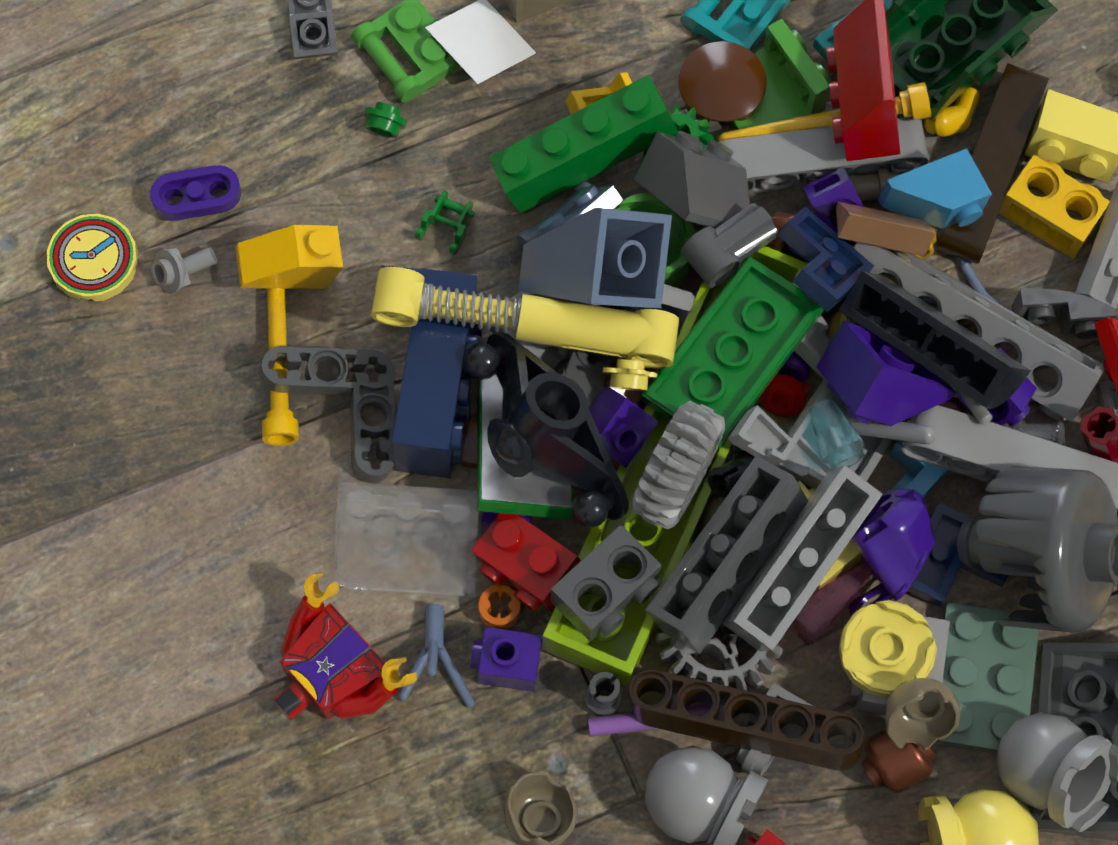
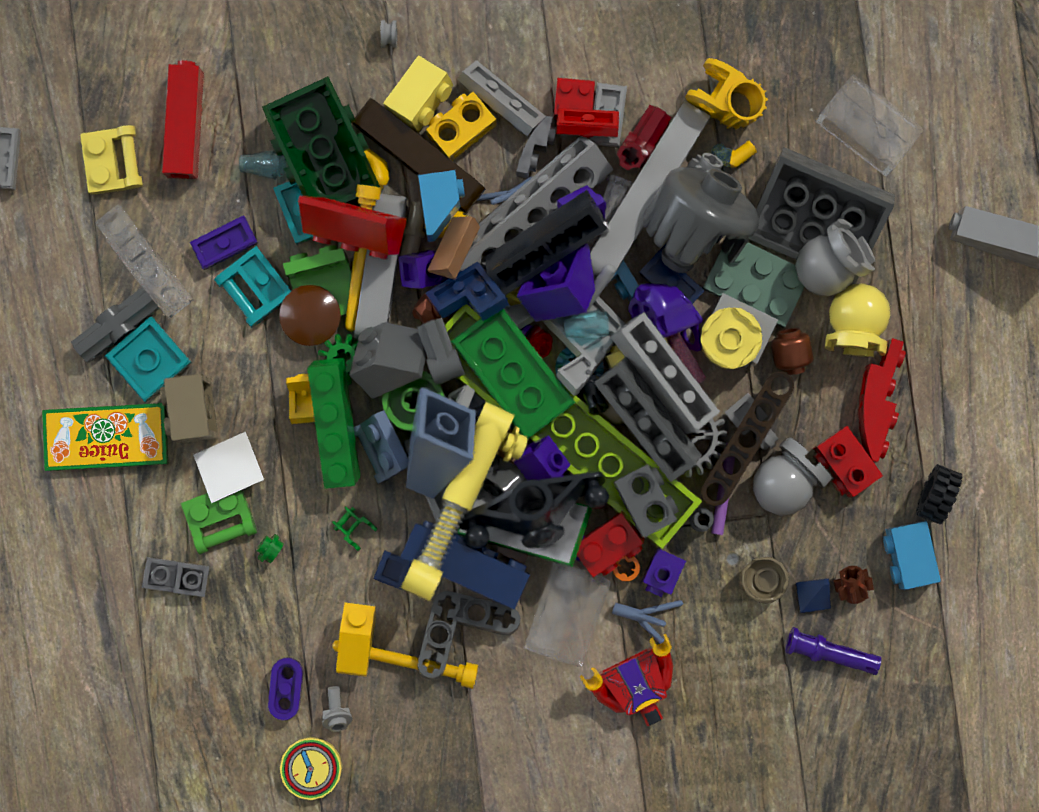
camera: 70 degrees left, 15 degrees up
(678, 464) = (587, 433): light grey gear -> none
(921, 713) = (779, 331): dark tan hair -> none

